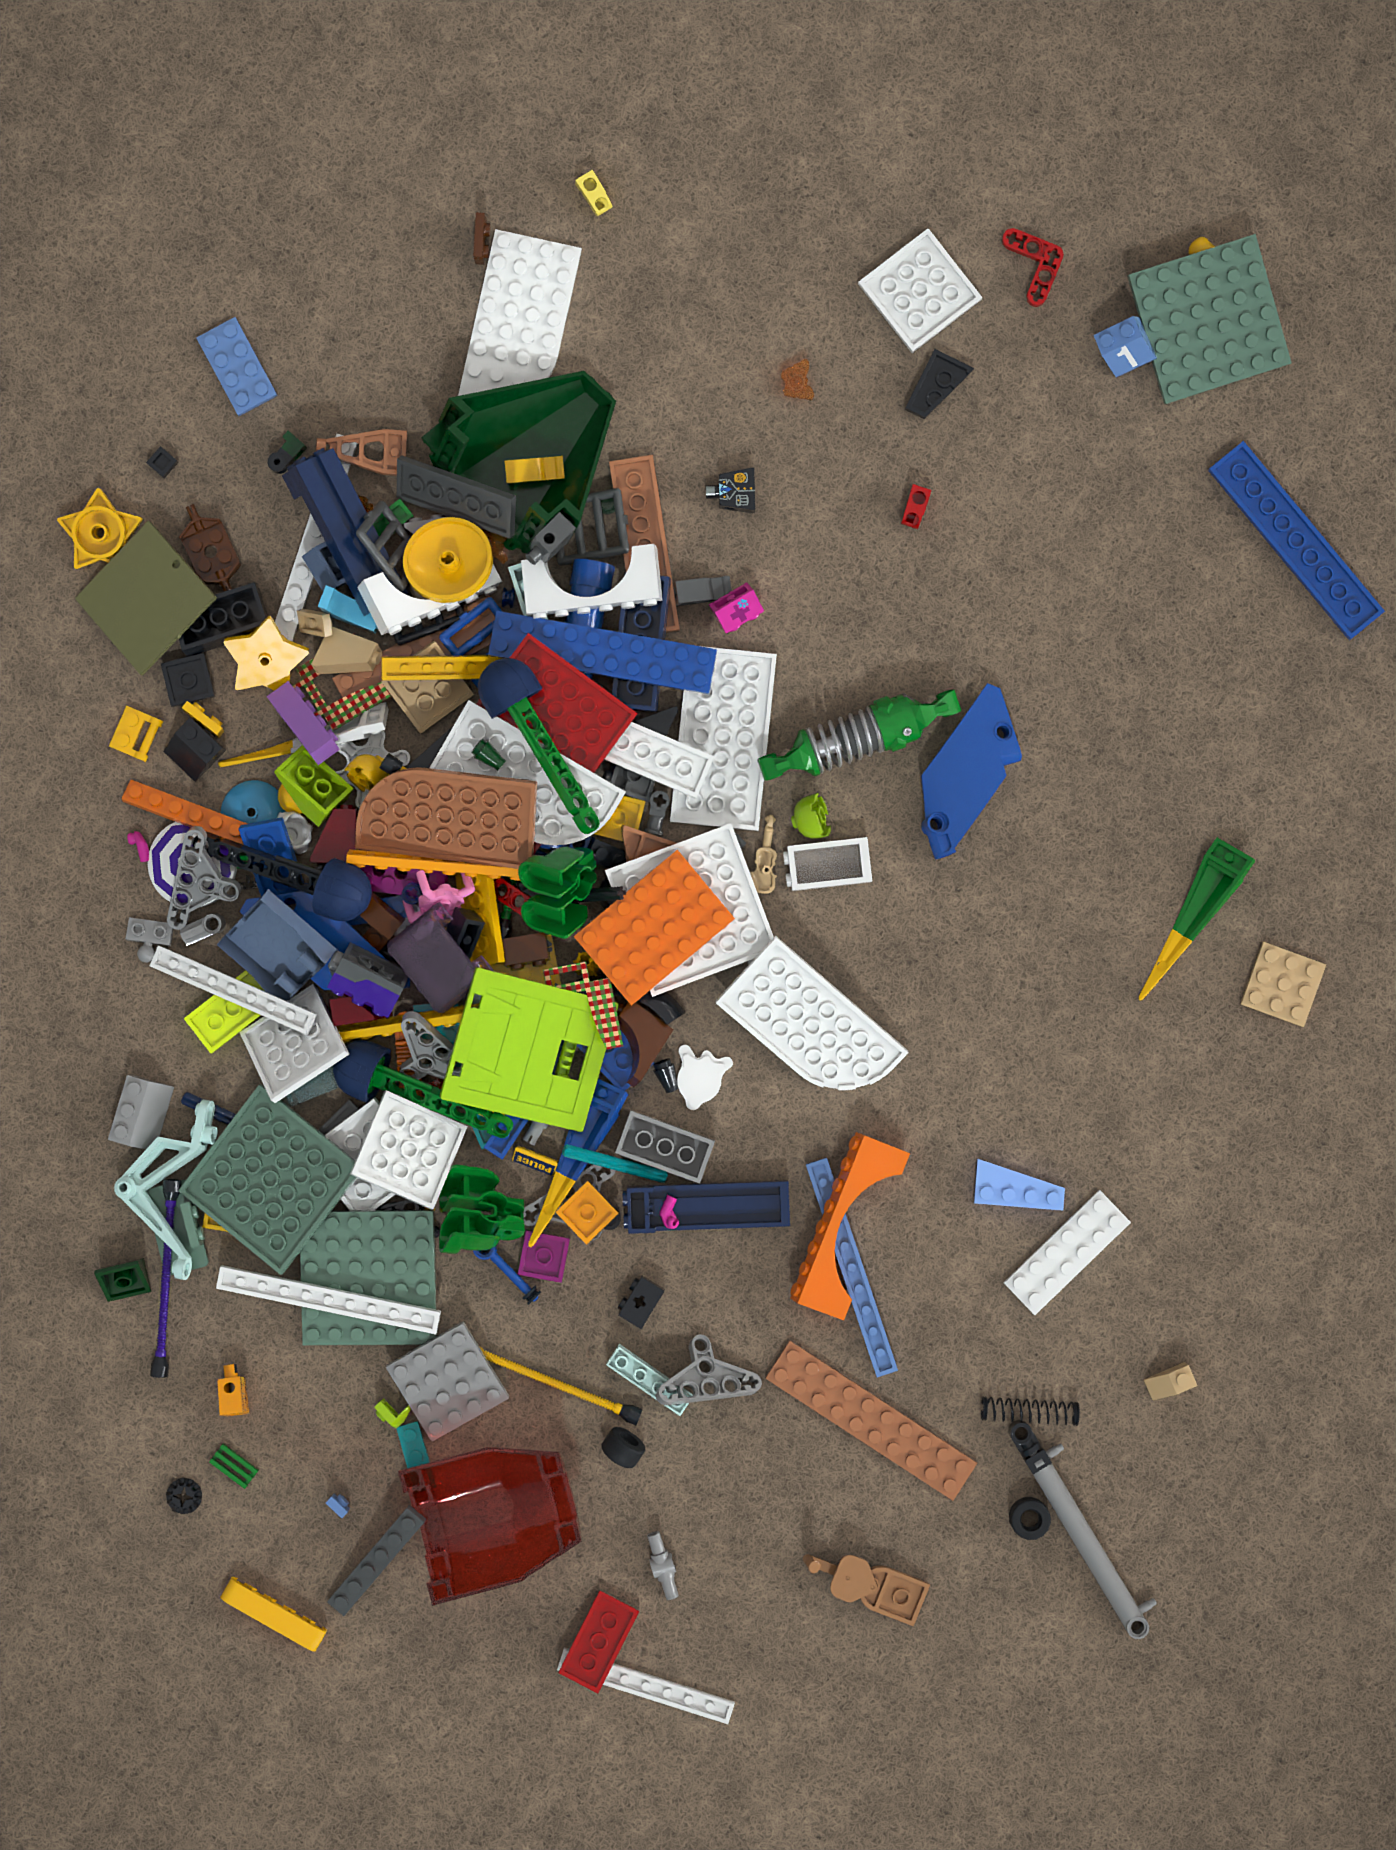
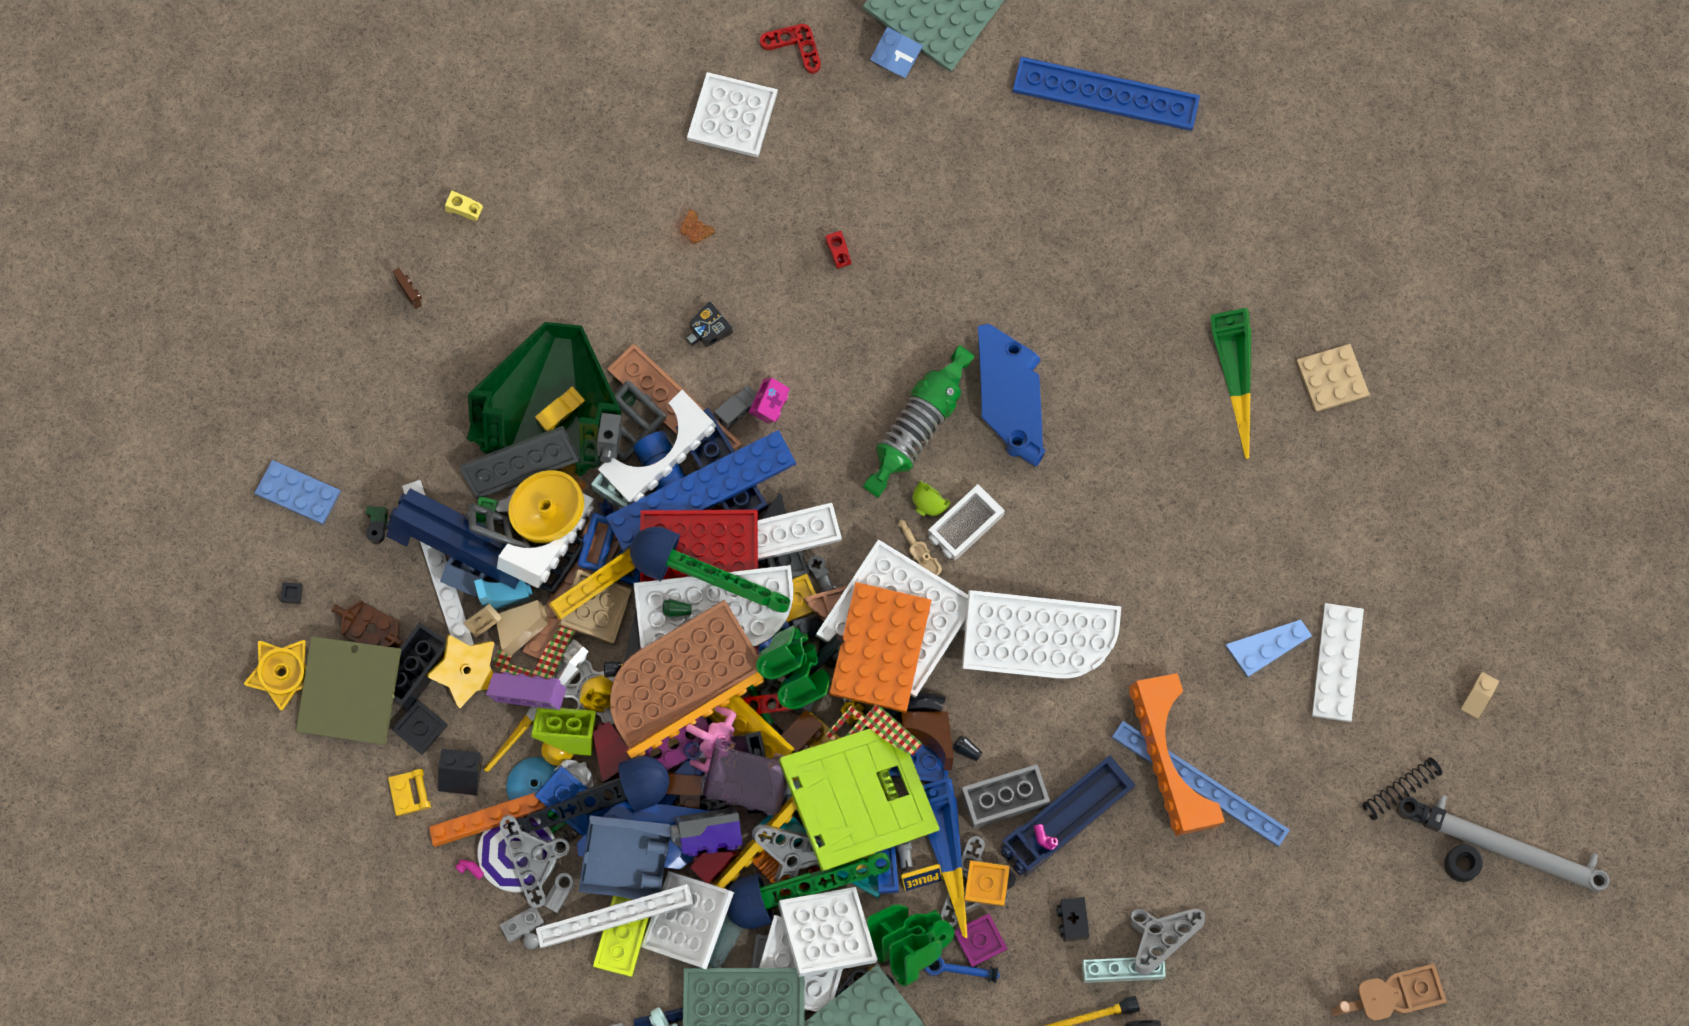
camera: 30 degrees left, 15 degrees down
(197, 713) = (459, 744): yellow plate -> none
(393, 447) = (449, 465): nougat plate -> none
(520, 312) = (470, 315): white plate -> none
(614, 1163) = (979, 834): teal axle -> none
(700, 1077) = (991, 733): white tile -> none
(733, 729) = (829, 476): white plate -> none
(871, 1420) = (1299, 880): nougat plate -> none
(936, 383) = (789, 164): black wing -> none

